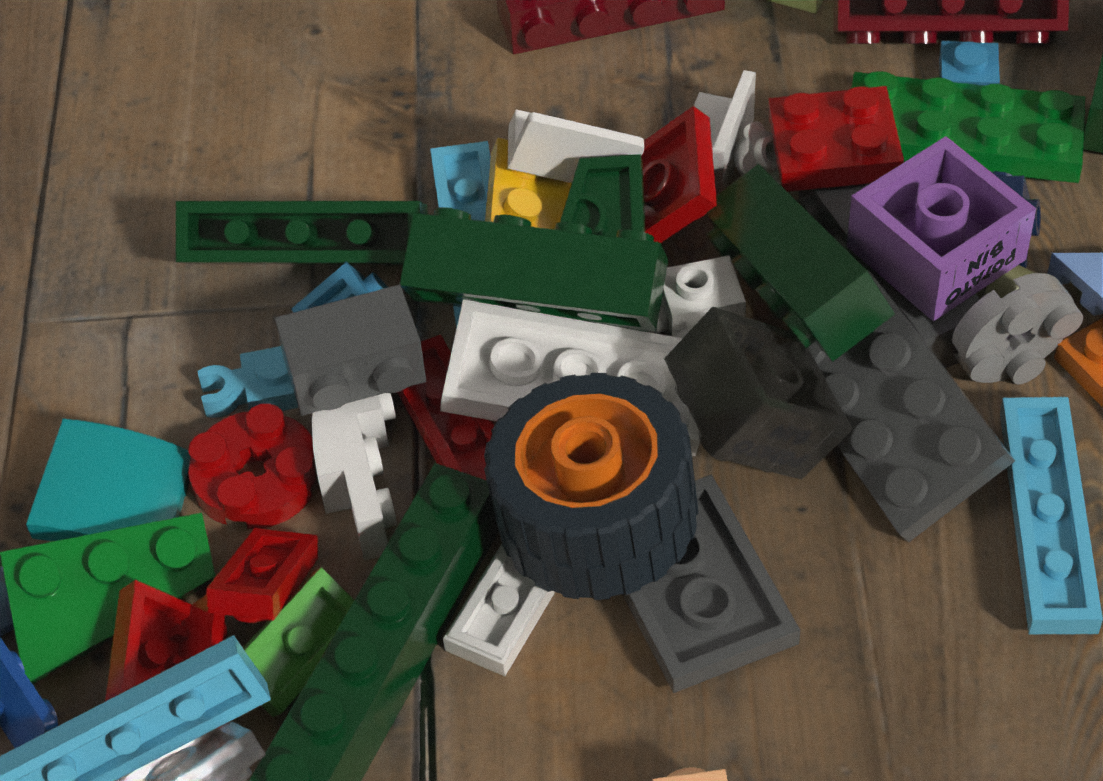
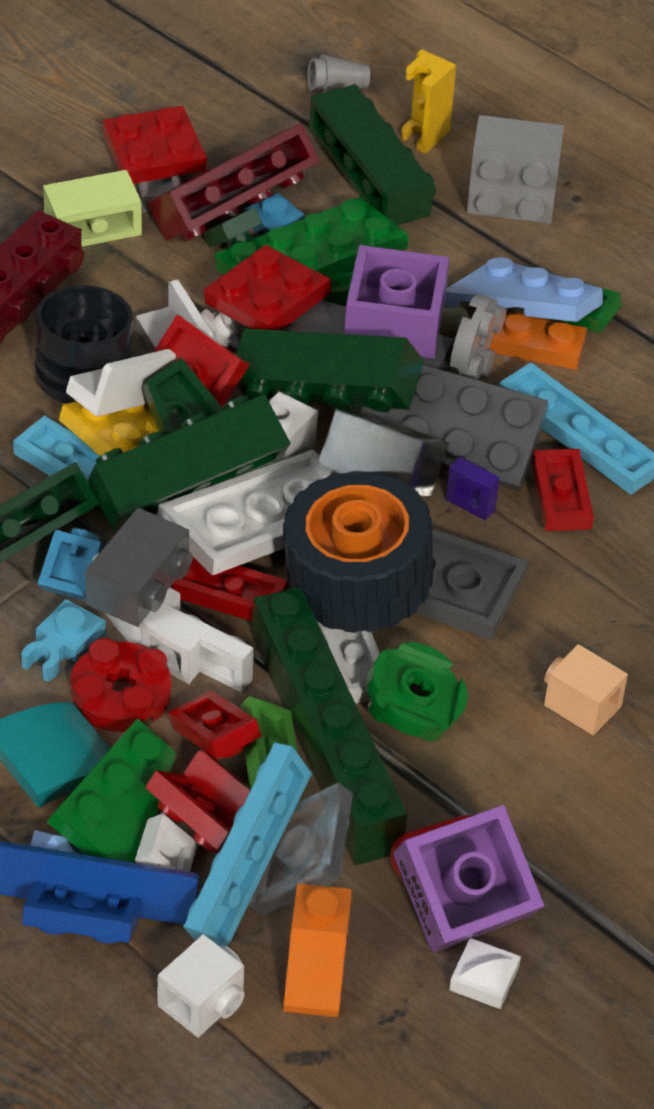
camera: 50 degrees left, 5 degrees down
(74, 674) = (166, 845): none -> white plate
(497, 728) = (401, 708): none -> green plate
(594, 72) = (79, 333): none -> black wheel
(838, 500) = (472, 488): none -> dark purple plate
(901, 57) = (233, 229): none -> dark green plate
(943, 572) = (562, 490): none -> red plate

